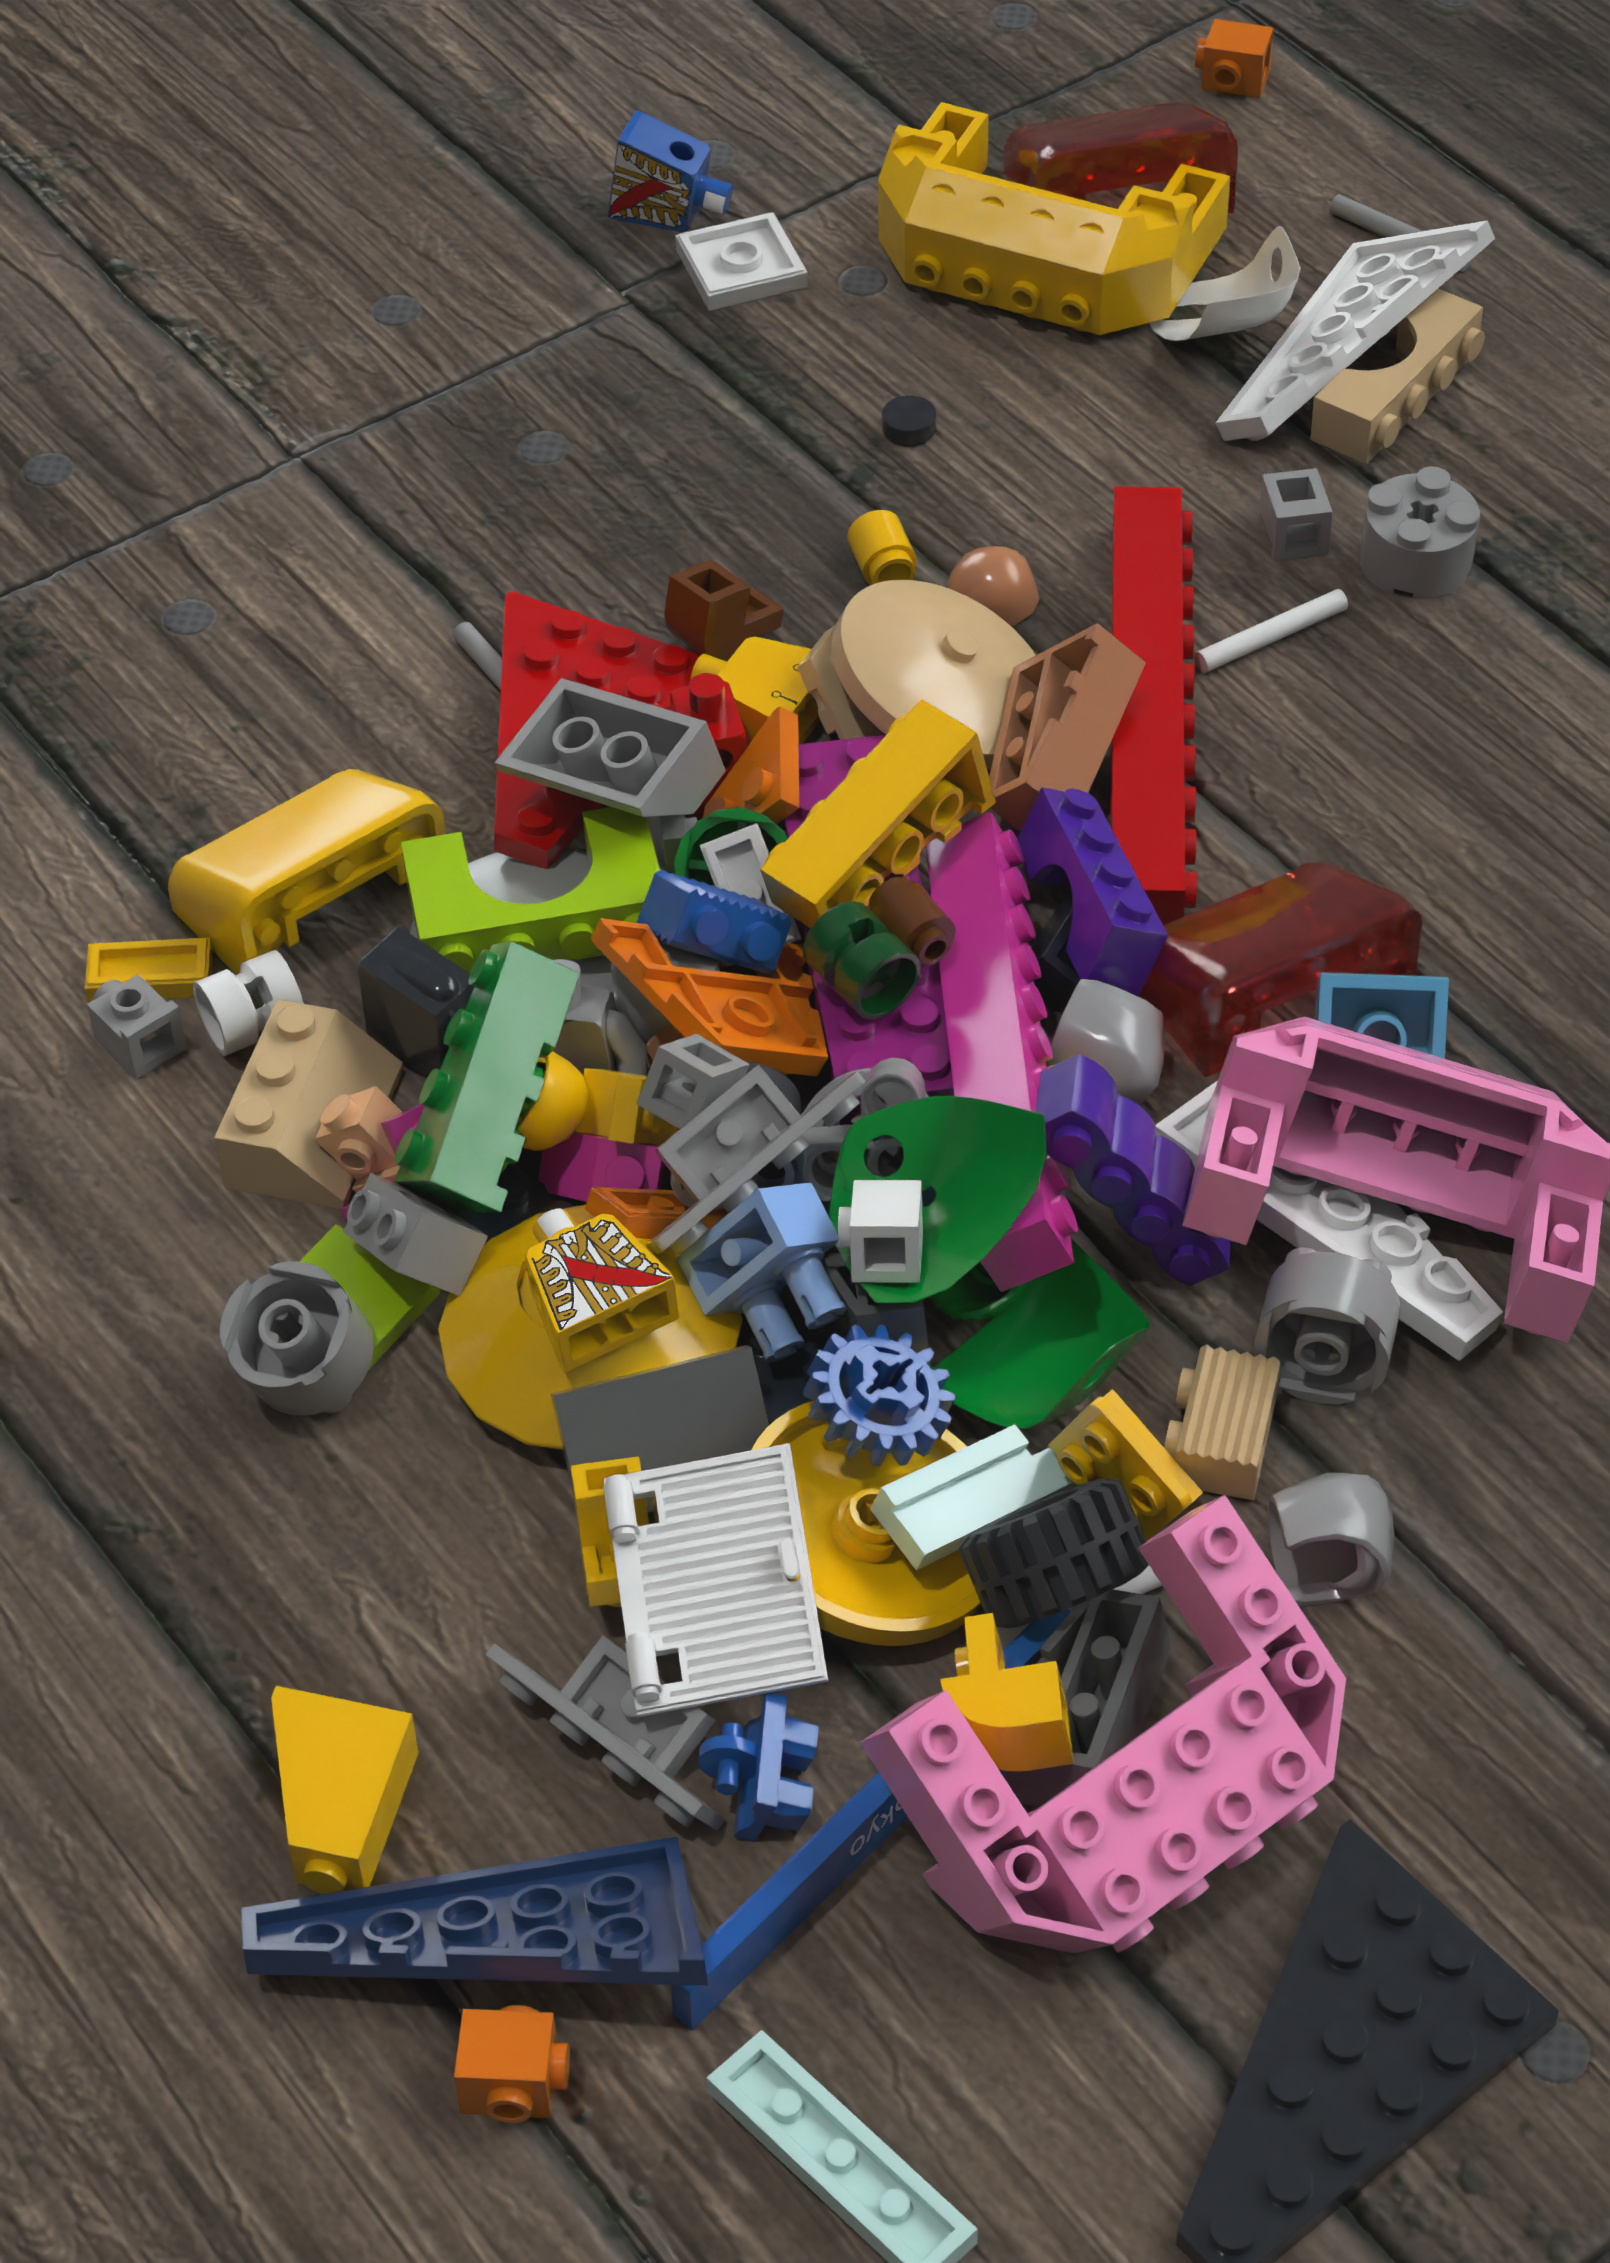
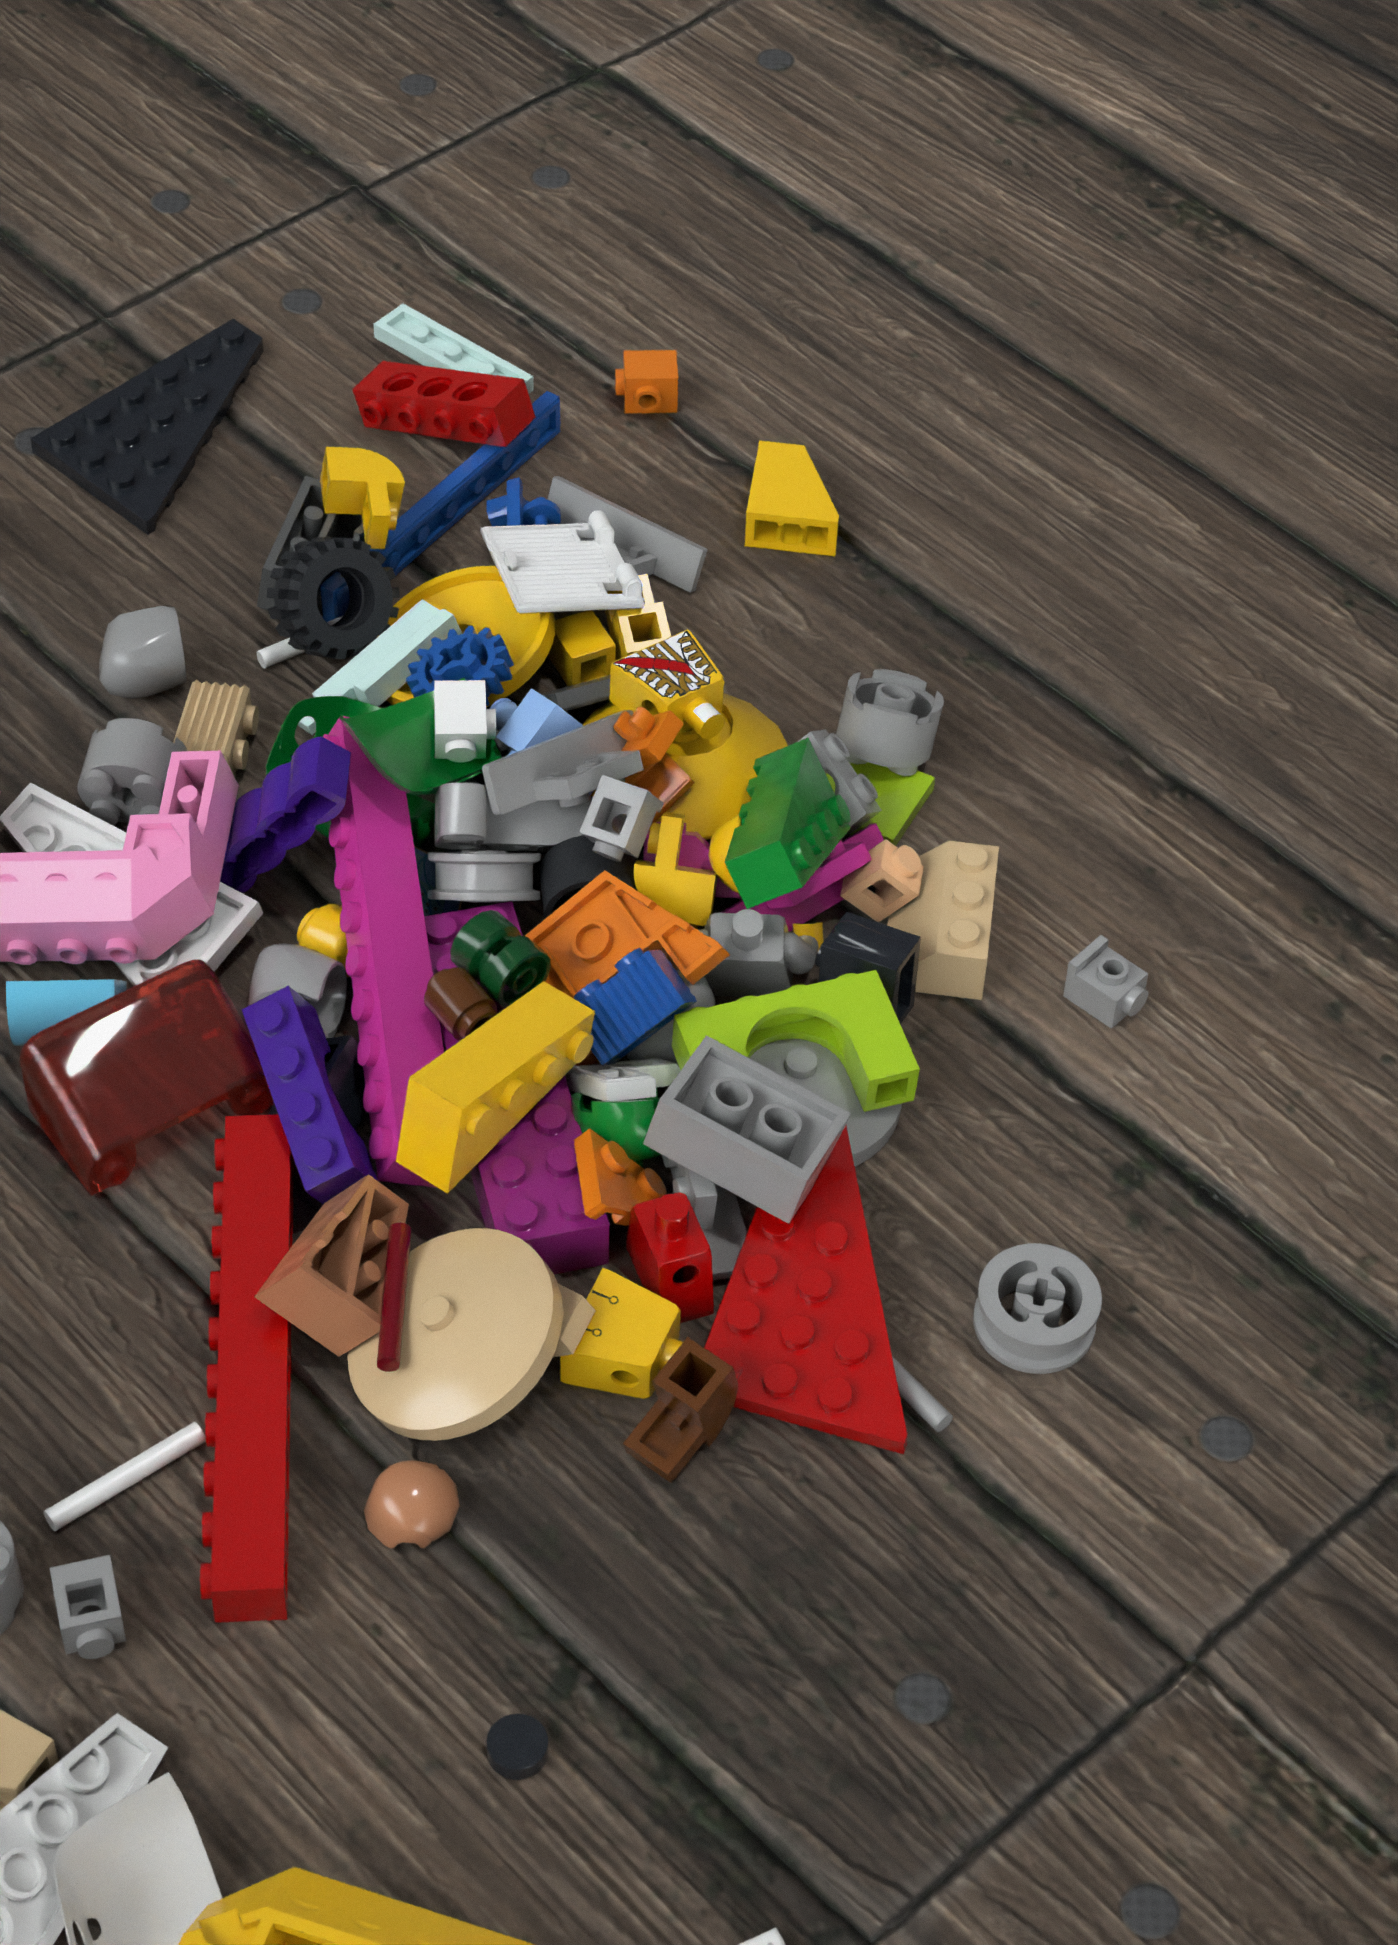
camera: 170 degrees right, 0 degrees up
(164, 964) = (1118, 1050): yellow tile -> none
(227, 1005) = (1021, 992): white wheel -> none
(296, 859) = (999, 1112): yellow windscreen -> none
(340, 721) = (1042, 1281): none -> light grey wheel
(551, 1919) = (655, 431): dark blue wing -> none
(639, 1202) = (648, 733): none -> orange tile
(874, 2005) = (444, 403): none -> red brick
(882, 547) = (529, 1530): yellow brick -> none
(1002, 686) = (394, 1297): none -> dark red bar
(1115, 1444) = (291, 655): yellow bracket -> none
(1164, 1804) = (232, 510): bright pink wedge -> none

